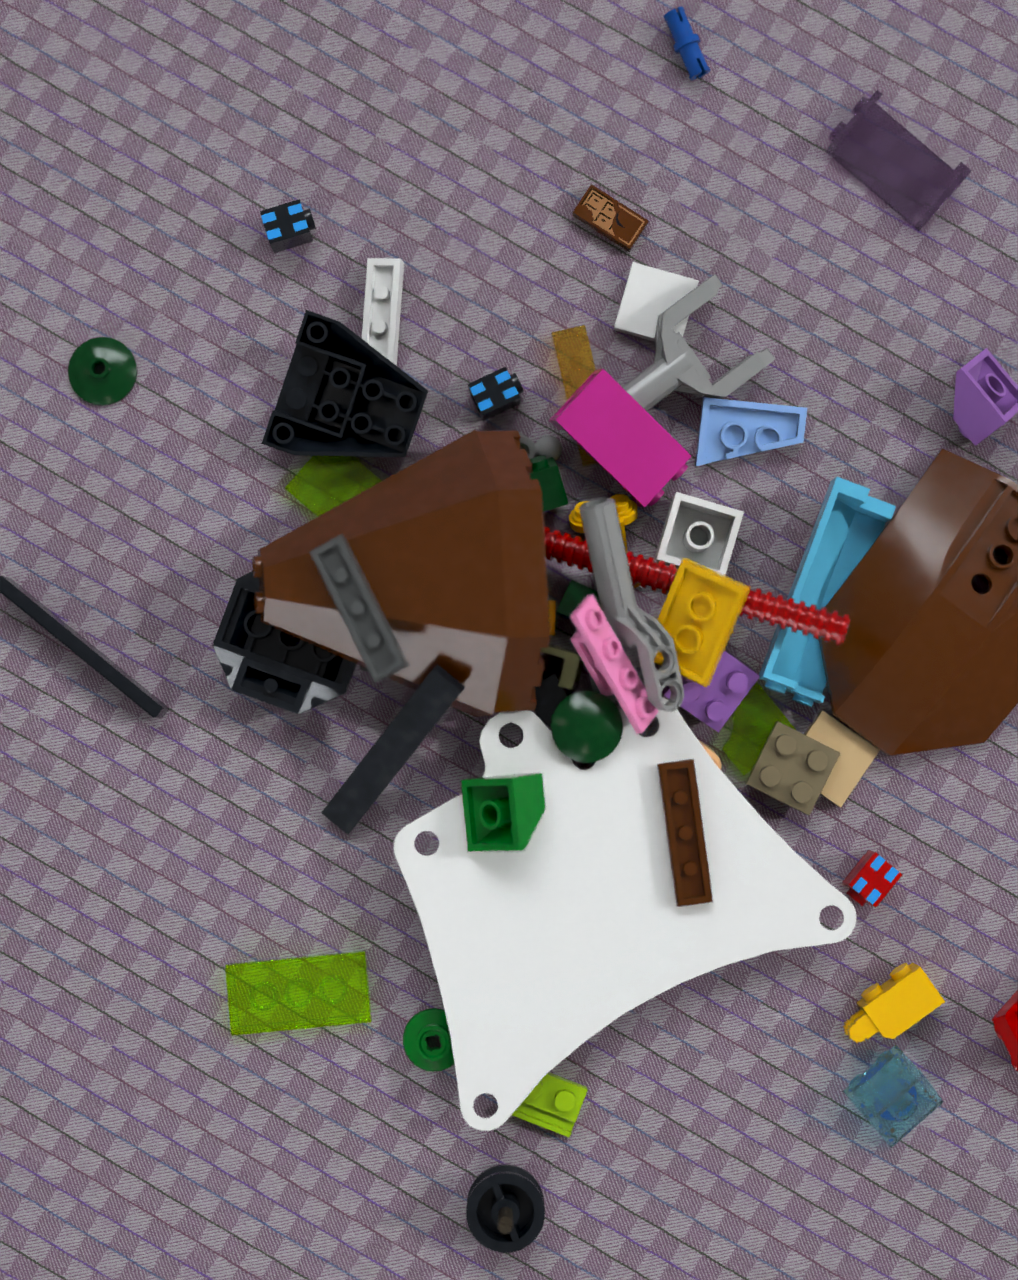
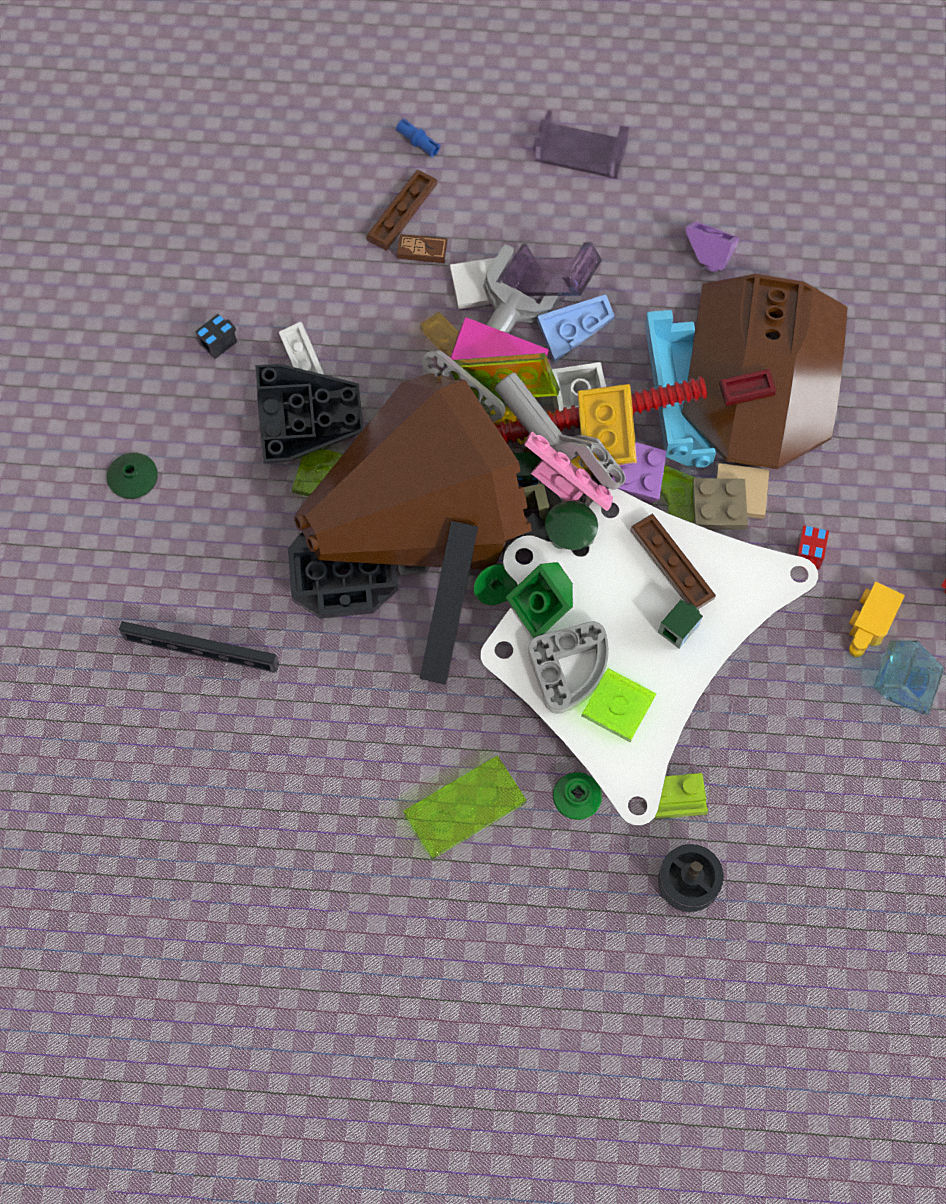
camera: 25 degrees left, 20 degrees down
(359, 608) = (383, 504): dark grey tile -> none
(462, 738) = (493, 593): none -> green piece
(485, 879) = (556, 651): none -> light grey beam
(495, 393) = (401, 369): black brick -> none
(525, 979) = (619, 705): none -> clear neon green tile
(546, 469) = (443, 361): none -> light grey beam
(610, 478) = (530, 368): none -> clear neon green tile
(613, 144) = (401, 210): none -> reddish brown tile
(650, 918) = (680, 623): none -> dark green brick
(750, 348) = (552, 274): none -> clear purple panel
(905, 646) = (747, 387): none -> dark red tile

